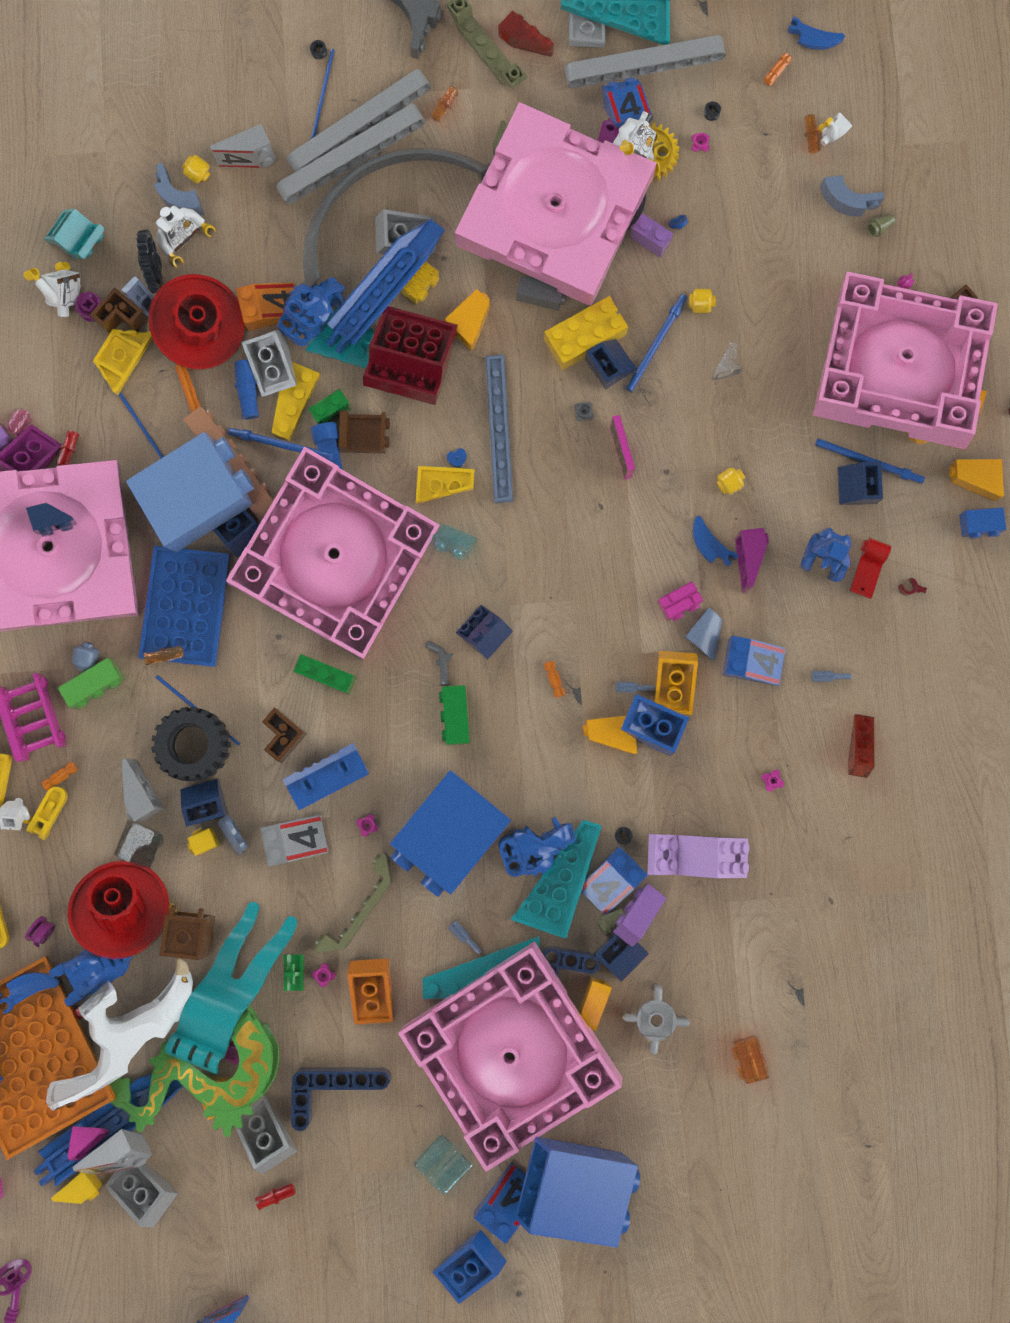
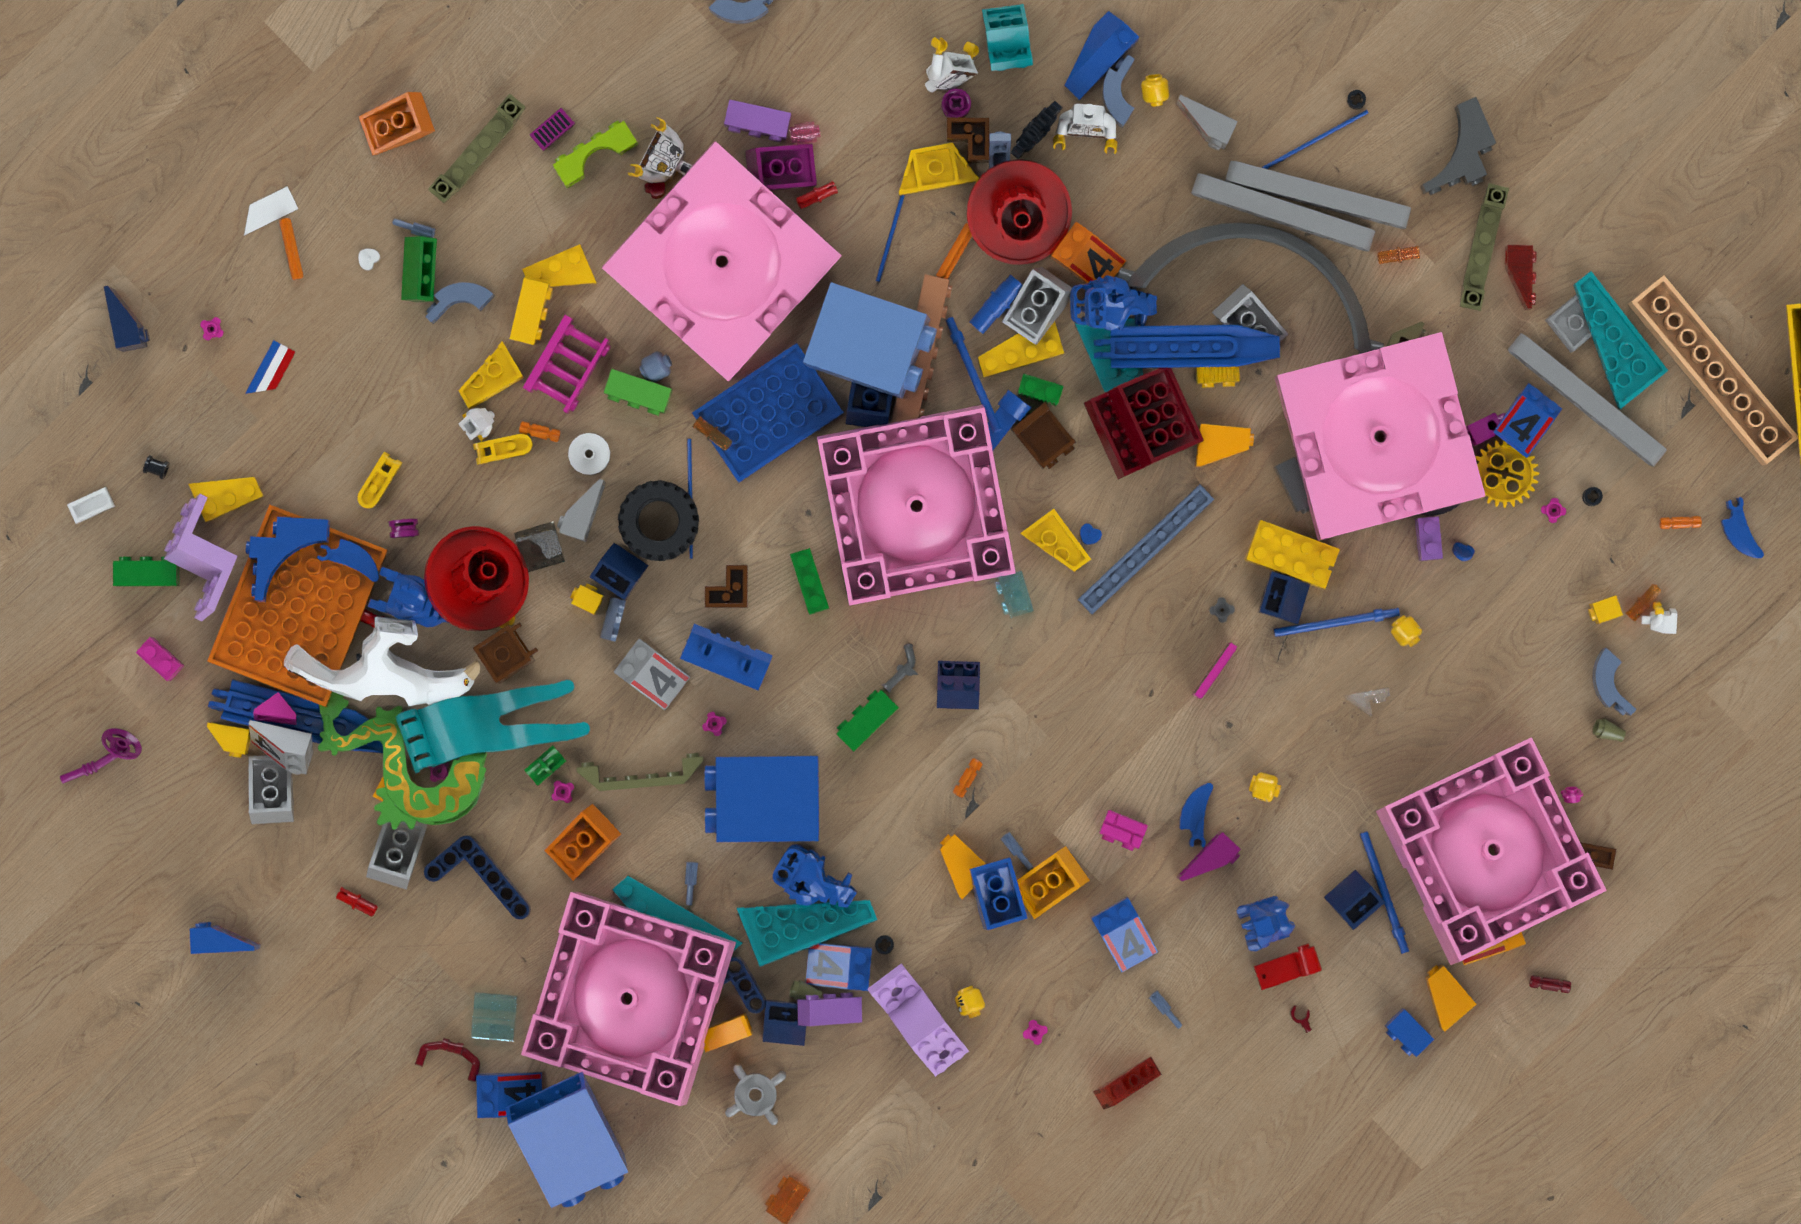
camera: 50 degrees right, 5 degrees up
(46, 519) = (745, 248): dark blue slope -> none
(115, 754) = (600, 456): none -> white plate
(138, 176) = (1102, 50): none -> blue wedge
(443, 1213) = (456, 1048): none -> dark red piece
(470, 1267) = (433, 1105): blue slope -> none
(637, 138) = (1495, 461): white torso -> none
(706, 633) = (1114, 874): sand blue slope -> none
(714, 808) = (969, 1002): none -> yellow head
(796, 160) = (1605, 610): none -> yellow brick

